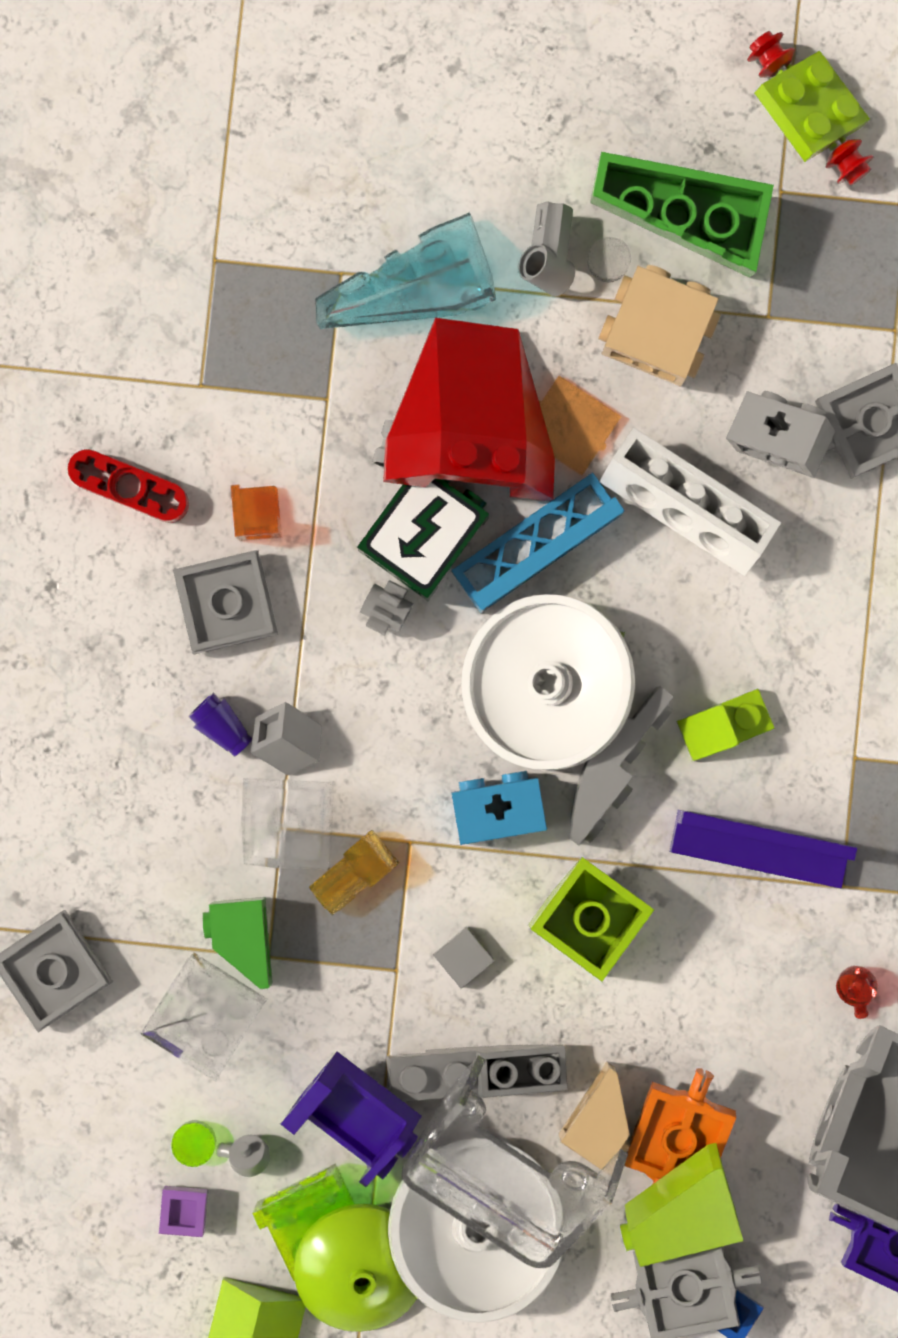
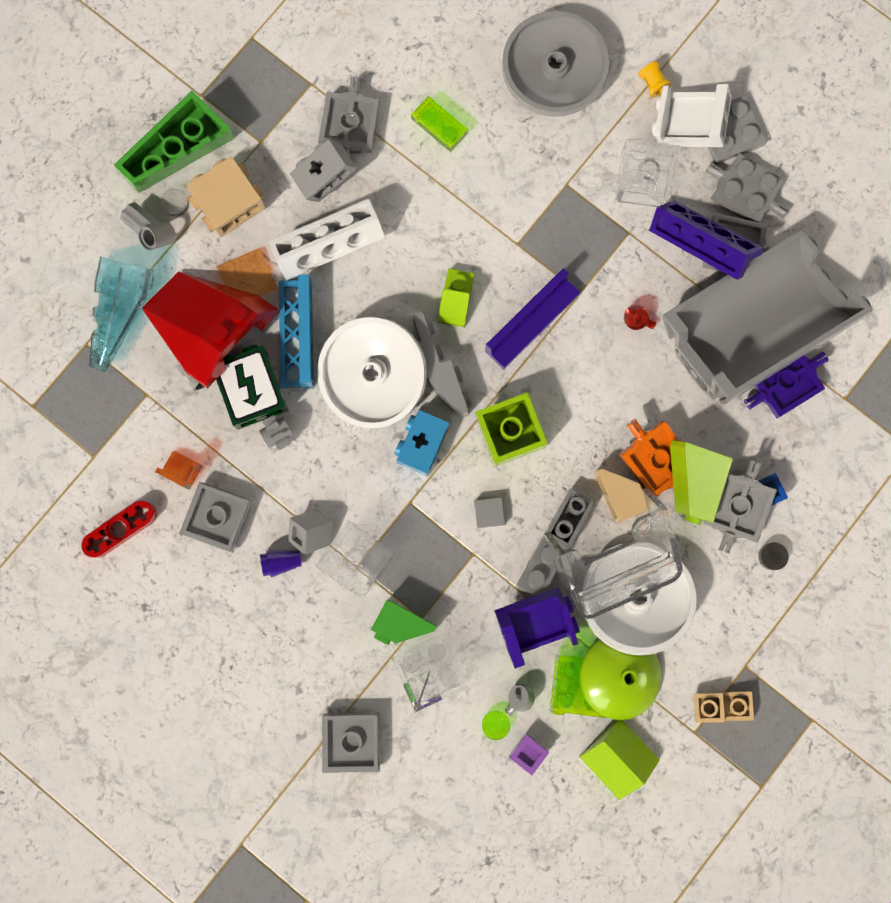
camera: 55 degrees left, 5 degrees down
(360, 867) = (405, 536): clear yellow piece -> none
(811, 106) = (167, 50): lime plate -> none

